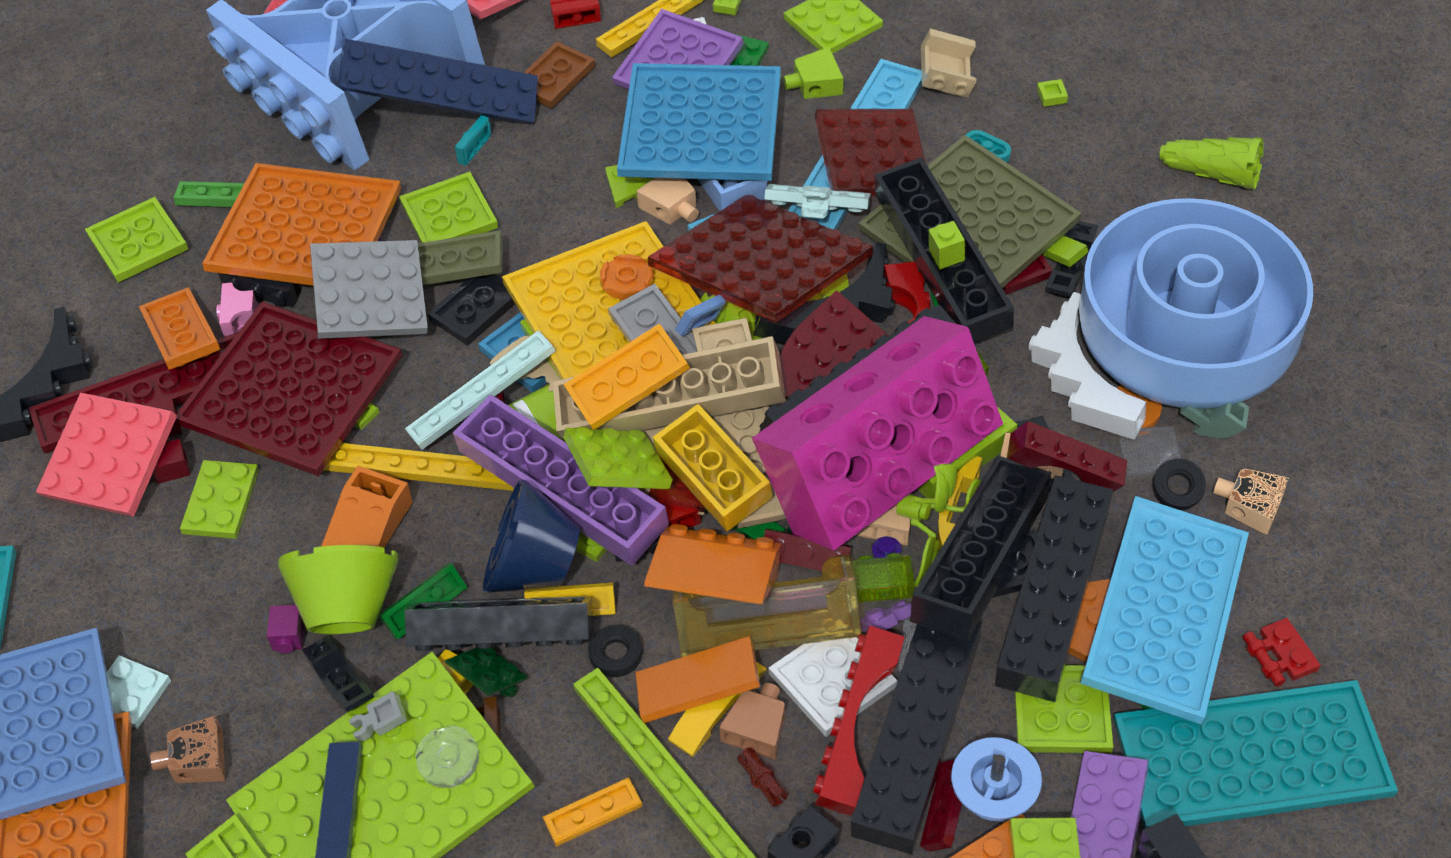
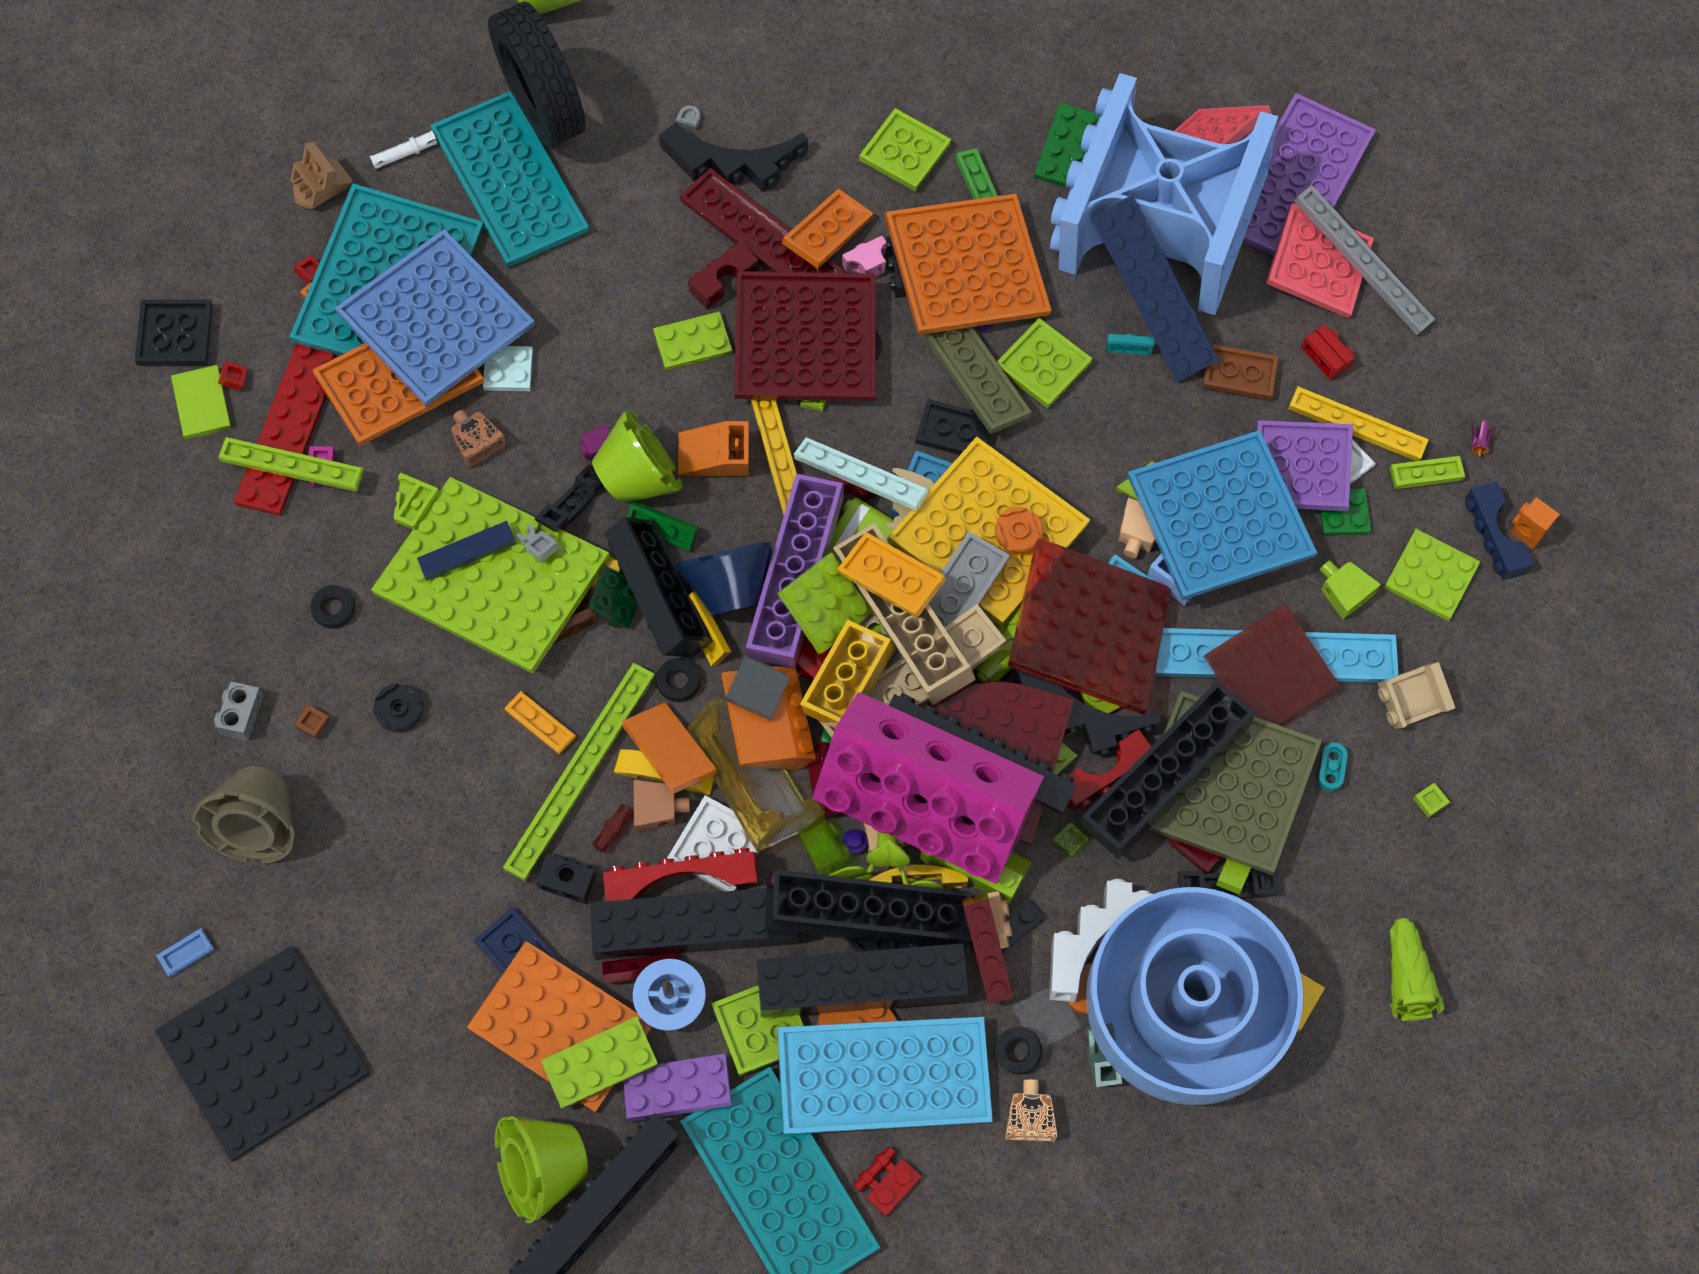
camera: 60 degrees right, 15 degrees up
(106, 454) = (688, 244): coral plate -> none
(230, 117) = (1064, 144): none -> green plate
(368, 289) = (918, 343): light grey plate -> none
(447, 756) = (526, 603): clear tile -> none
(681, 555) = (757, 688): none -> dark grey tile
(700, 315) = (993, 604): medium blue tile -> none
(817, 200) = (1186, 645): light aqua plate -> none
(885, 618) = (783, 859): medium lavender plate -> none
(946, 244) = (1154, 768): lime brick -> none

